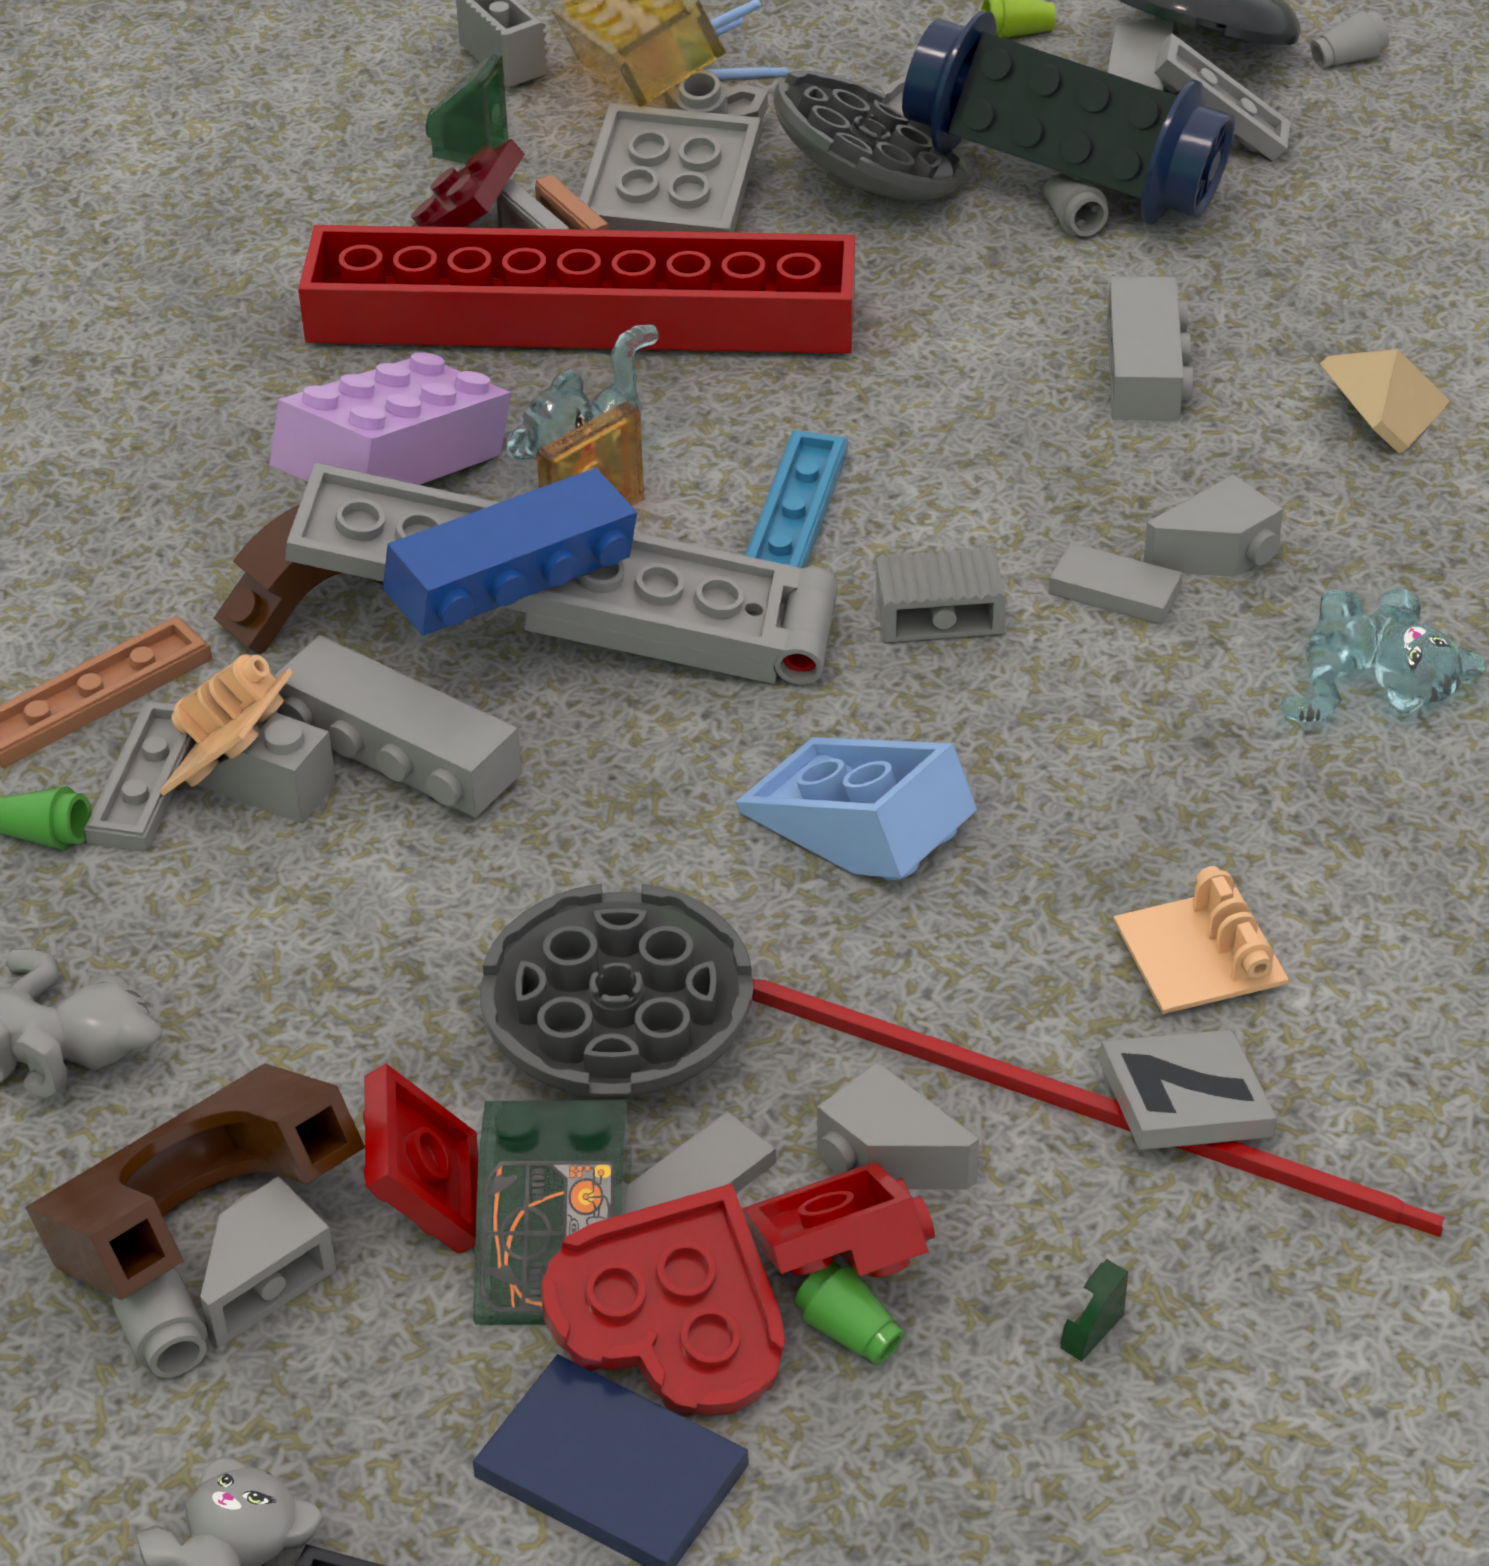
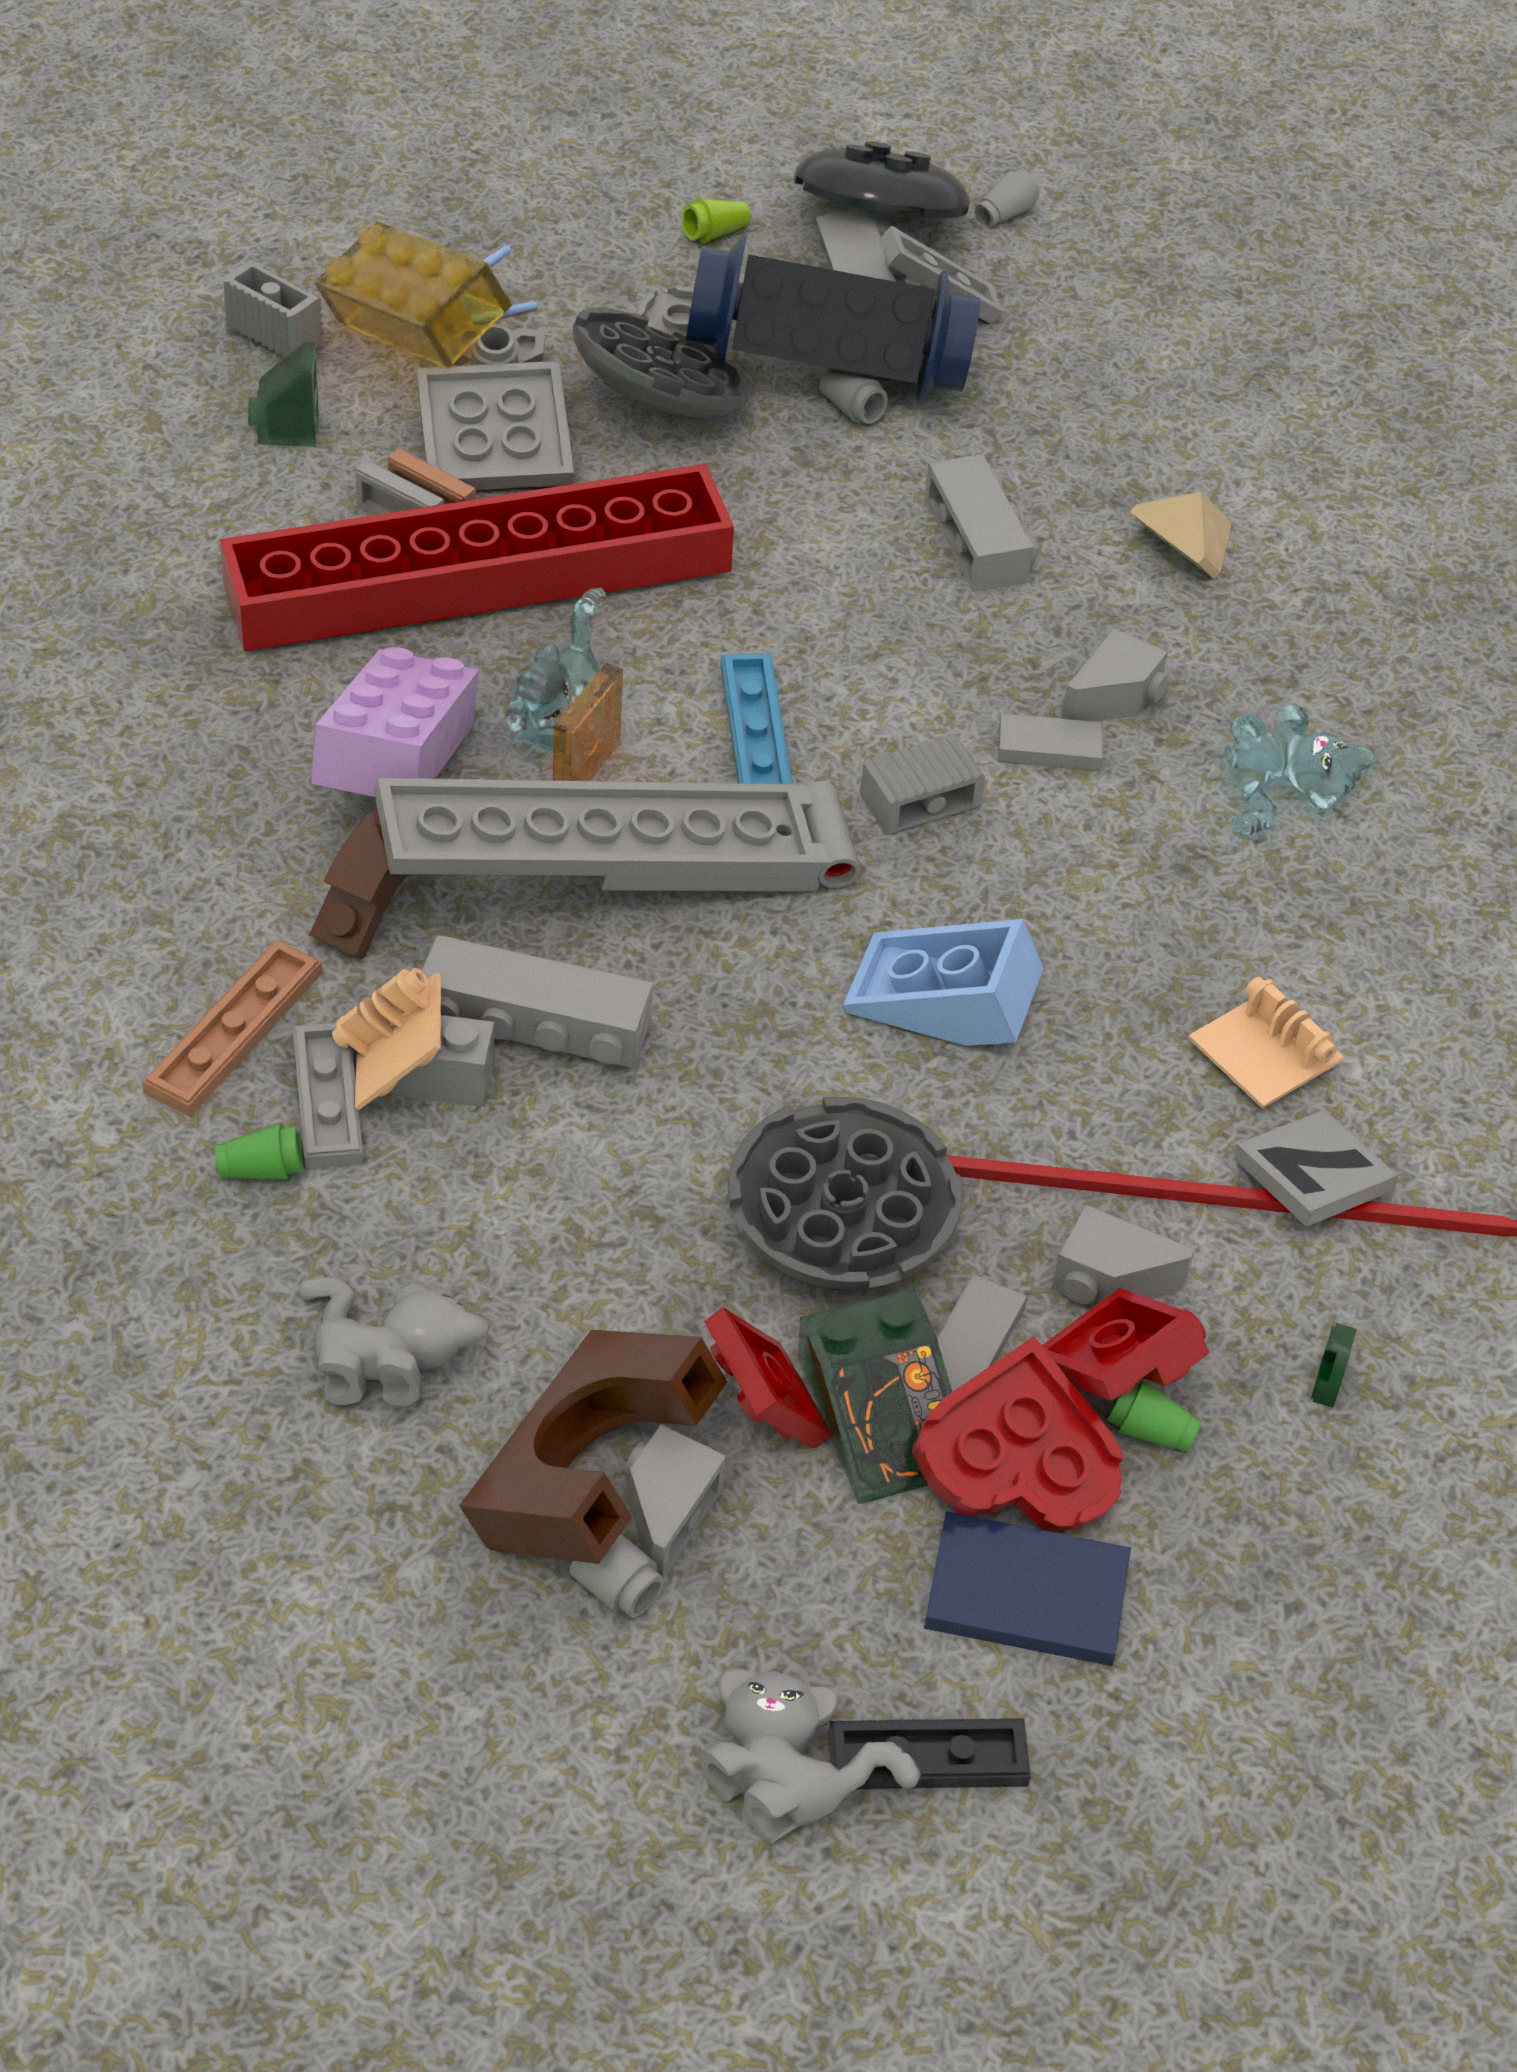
camera: 25 degrees left, 5 degrees up
(470, 192) = (328, 479): dark red plate -> none
(508, 551) = (589, 827): blue brick -> none

